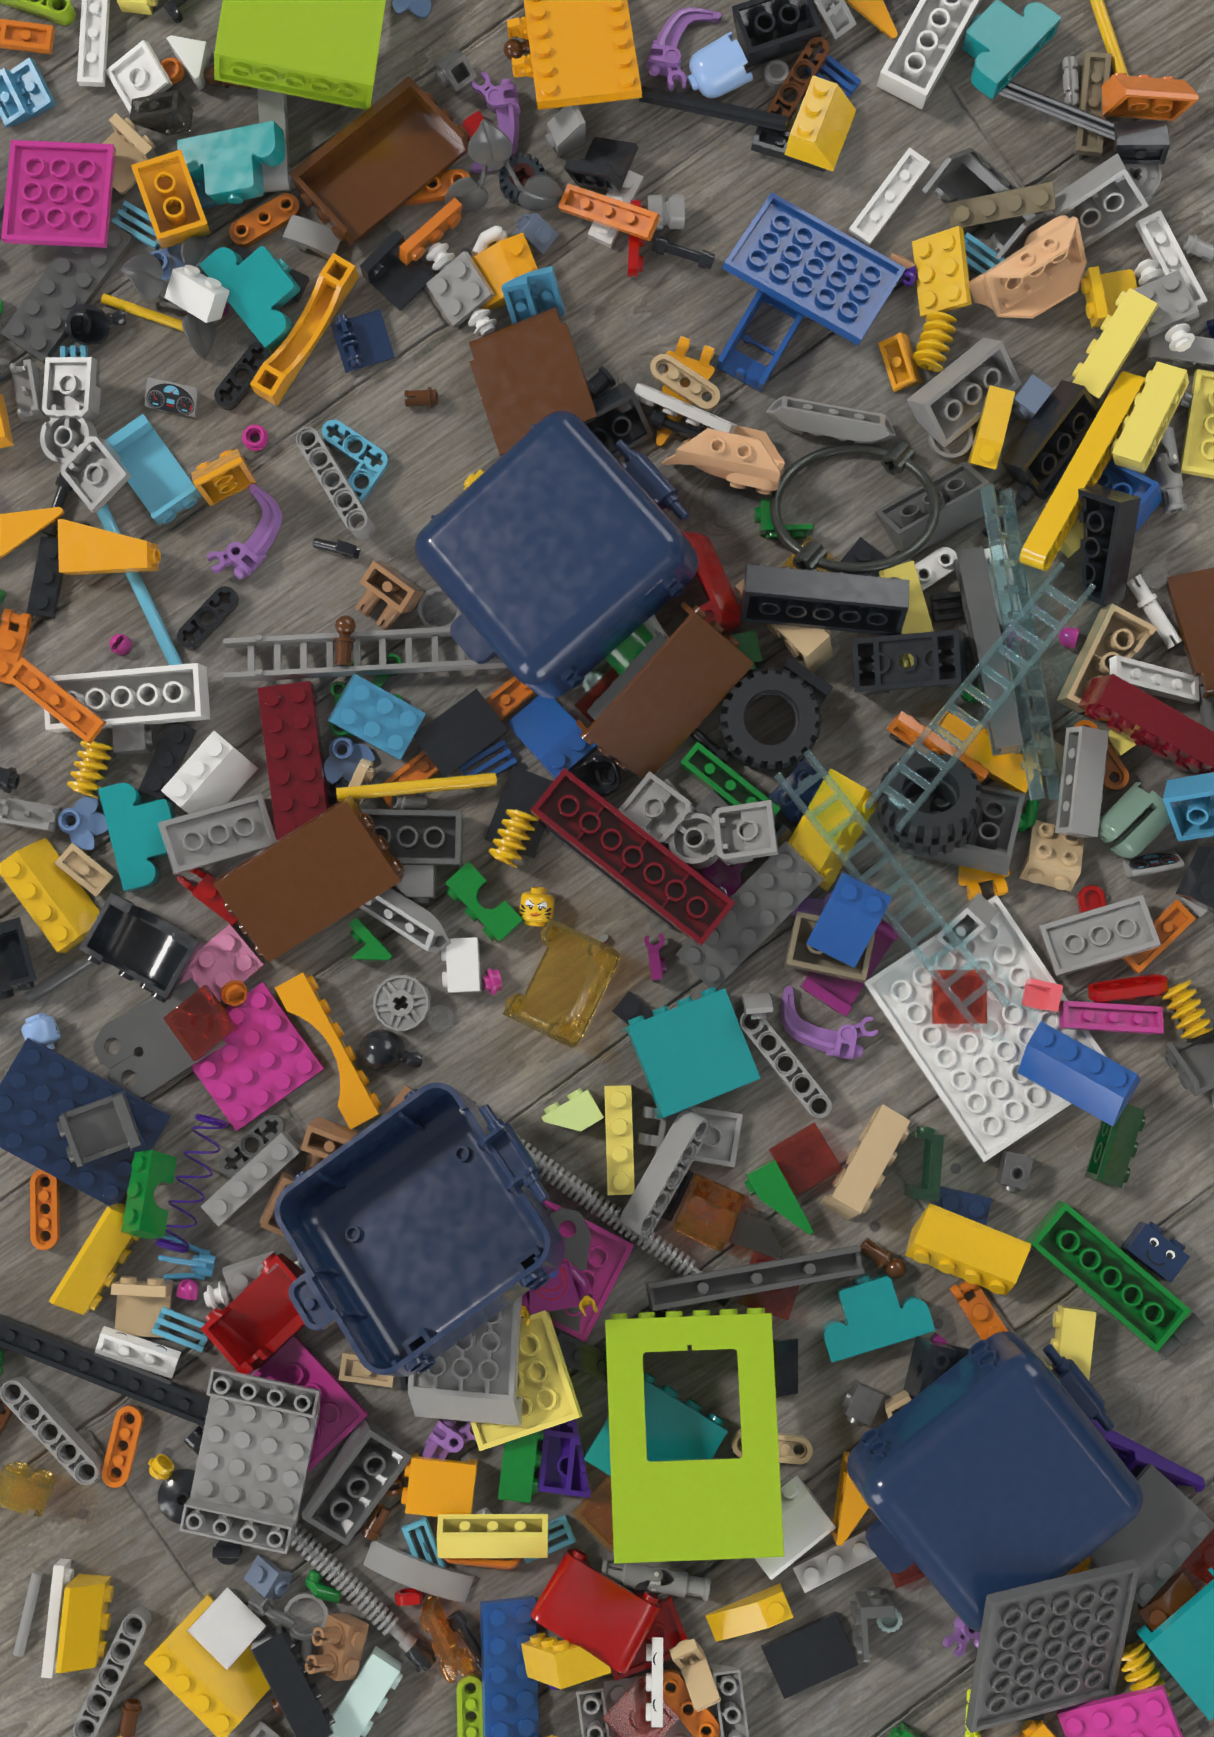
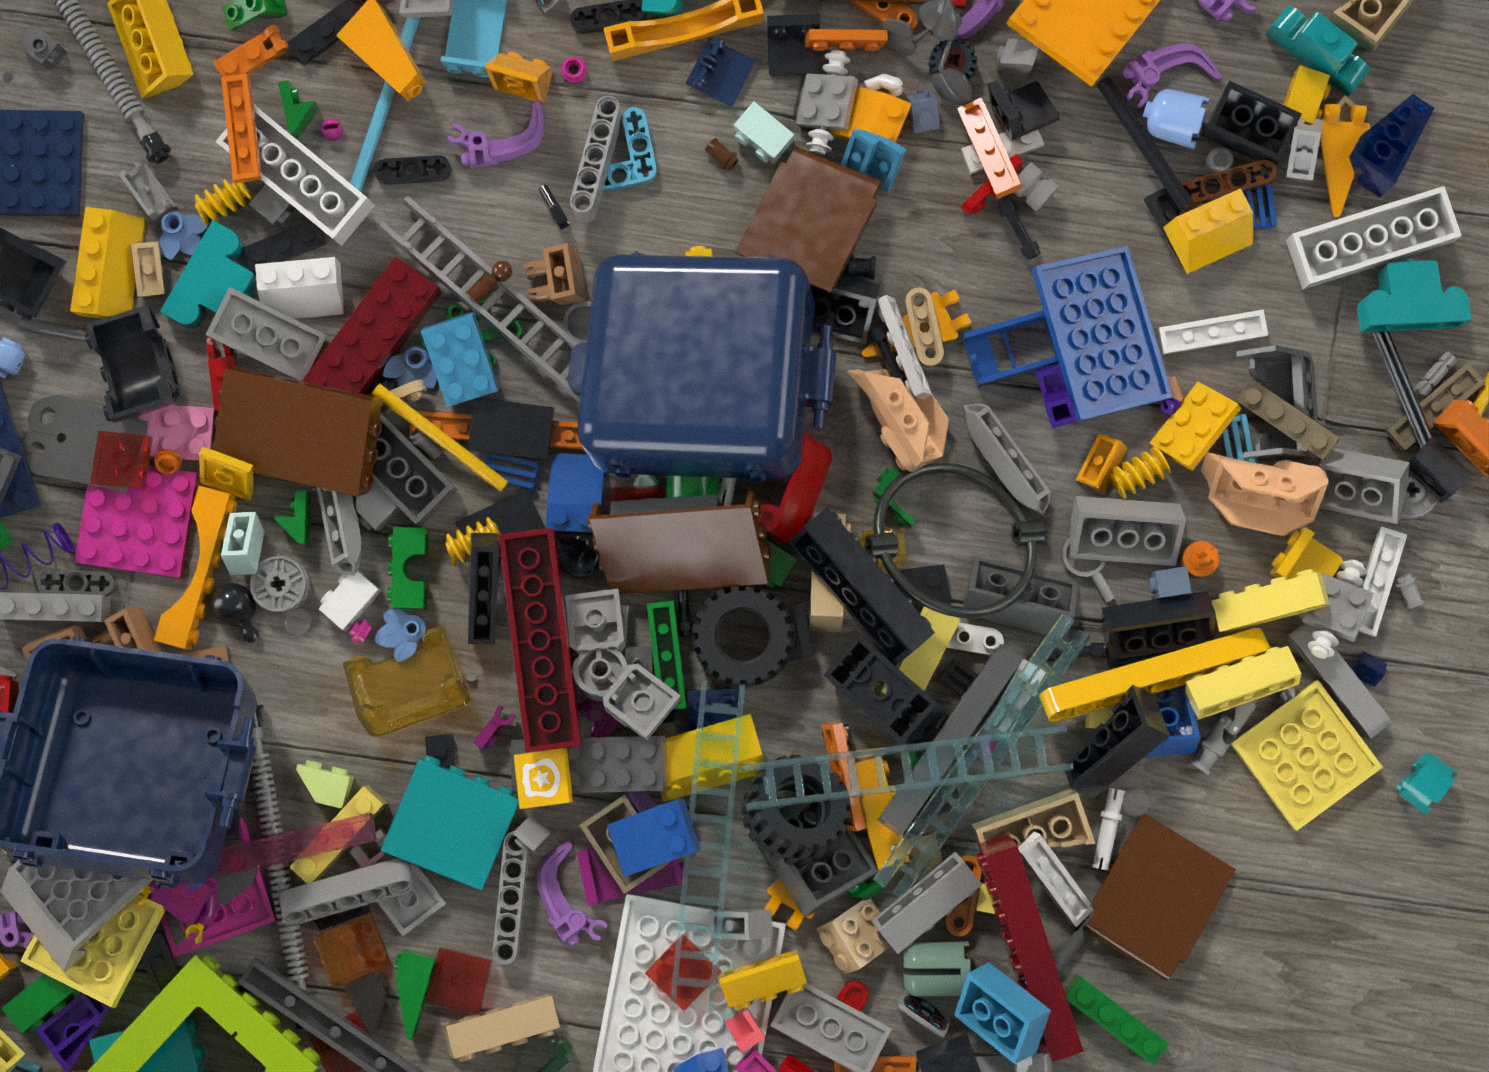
camera: 45 degrees right, 0 degrees up
(85, 656) = (297, 115): none -> green slope
(286, 960) = (226, 473): none -> yellow tile
(347, 998) = (242, 543): none -> light aqua brick
(436, 354) = (763, 133): none -> light aqua brick
(520, 958) = (397, 635): none -> medium blue plate
(536, 906) = (443, 608): yellow head -> none
(553, 862) = (483, 588): none -> black brick
(601, 1169) = (297, 844): none -> clear pink tile
(727, 956) = (543, 778): none -> yellow tile
(825, 343) = (1056, 398): none -> dark purple brick
(992, 428) = (1118, 577): yellow slope -> none
(1021, 946) = (763, 979): none -> yellow slope
(1036, 360) = (1200, 559): none -> orange piece
(1068, 637) = (1026, 786): dark pink hinge -> none

